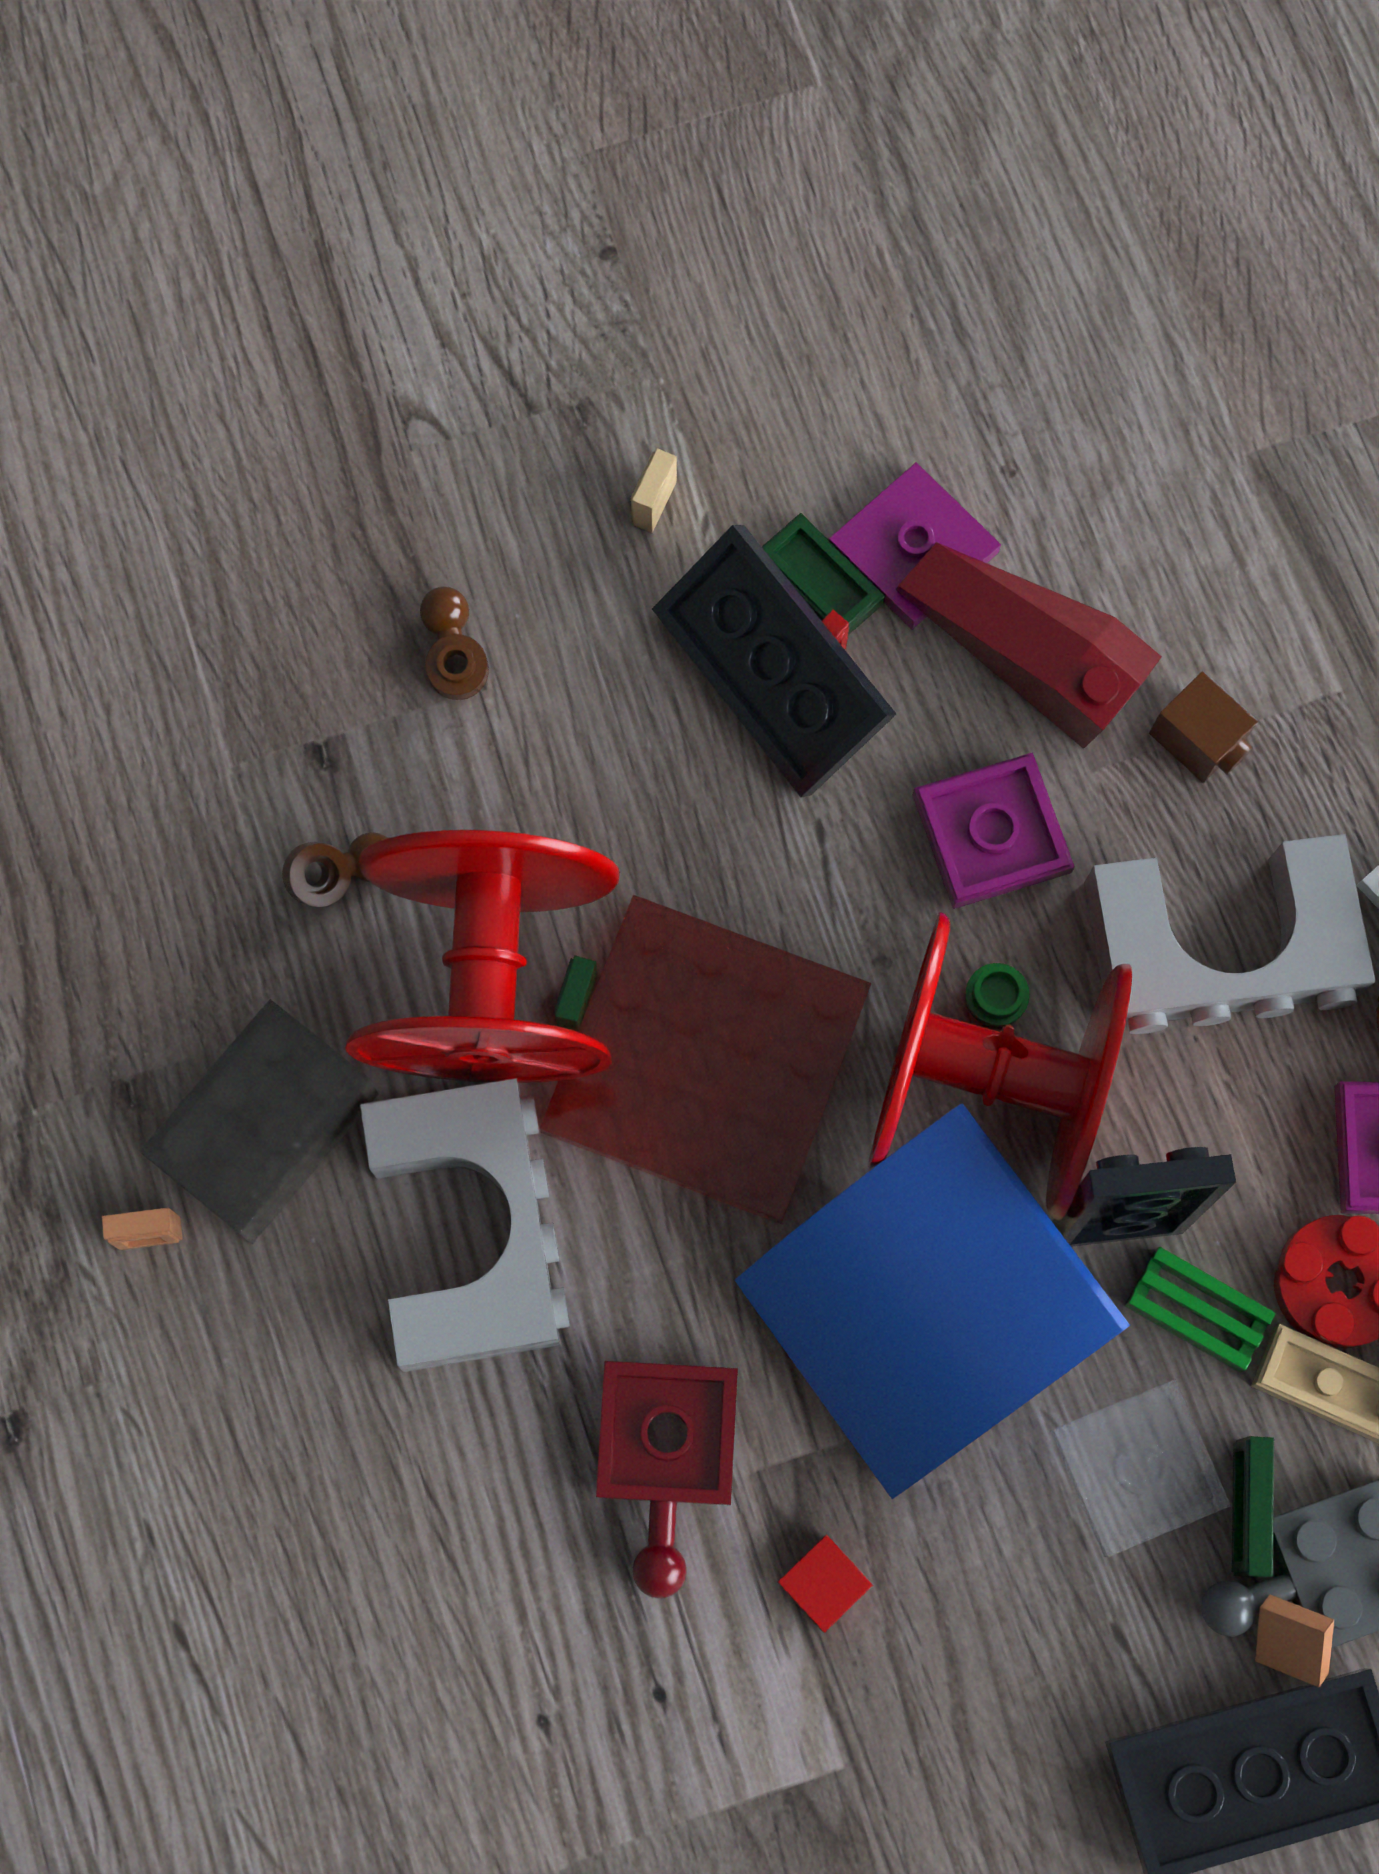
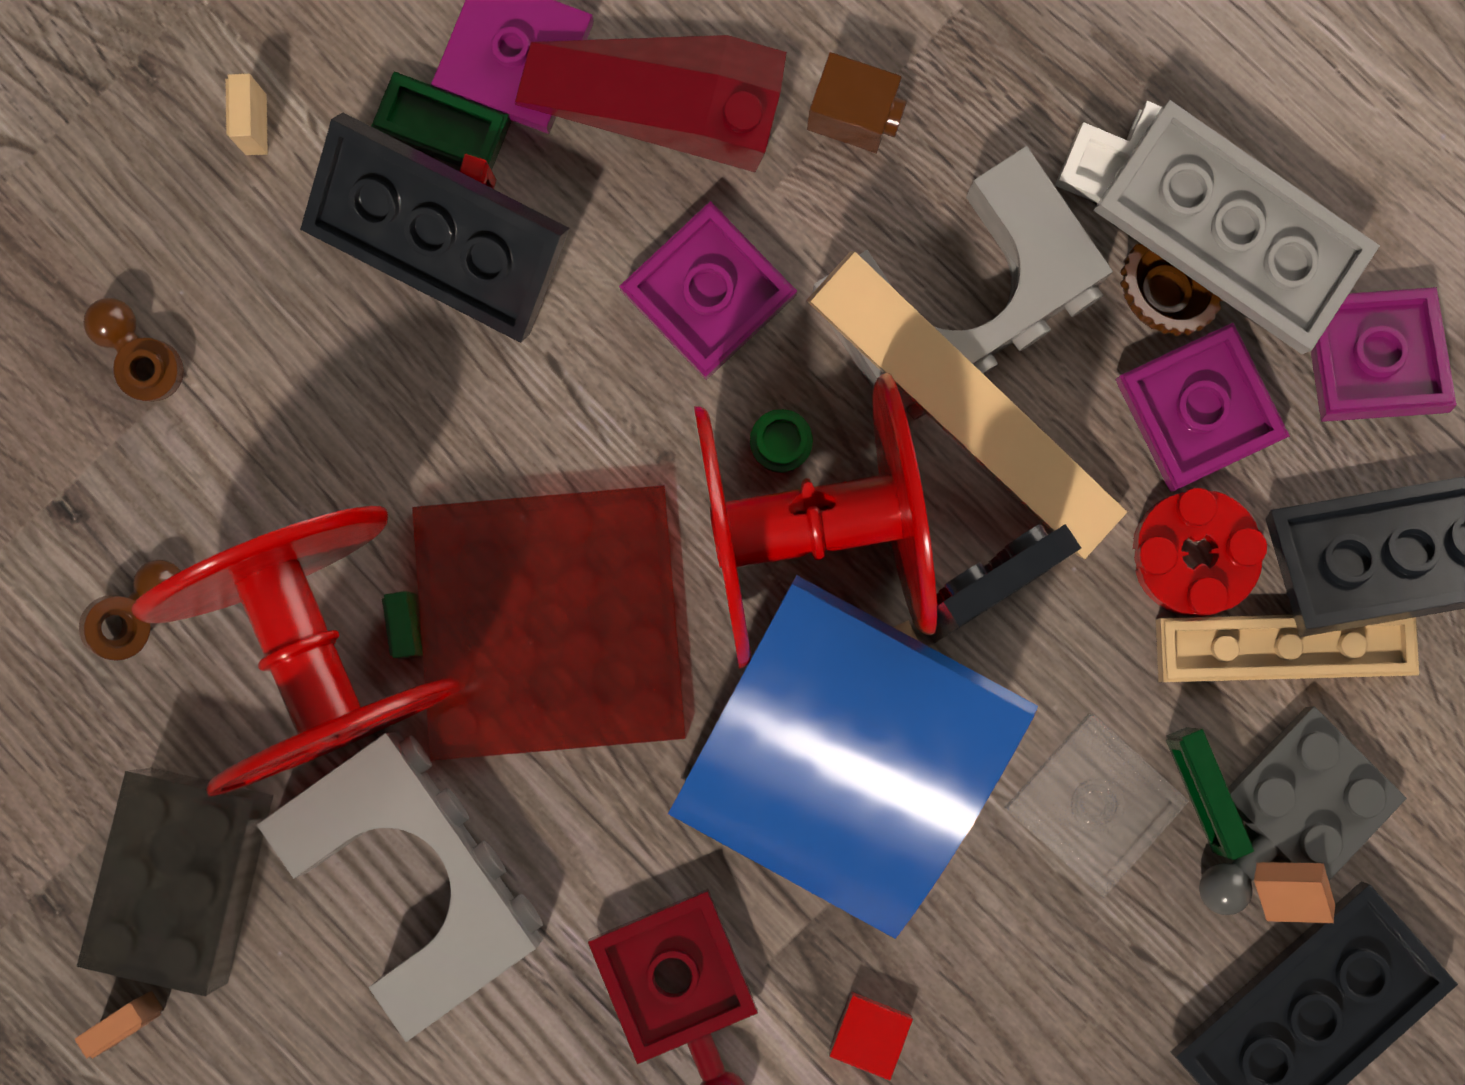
camera: 20 degrees left, 10 degrees up
(1185, 1034) = (964, 402): none -> tan tile
(1250, 1336) = (1140, 641): green tile -> none

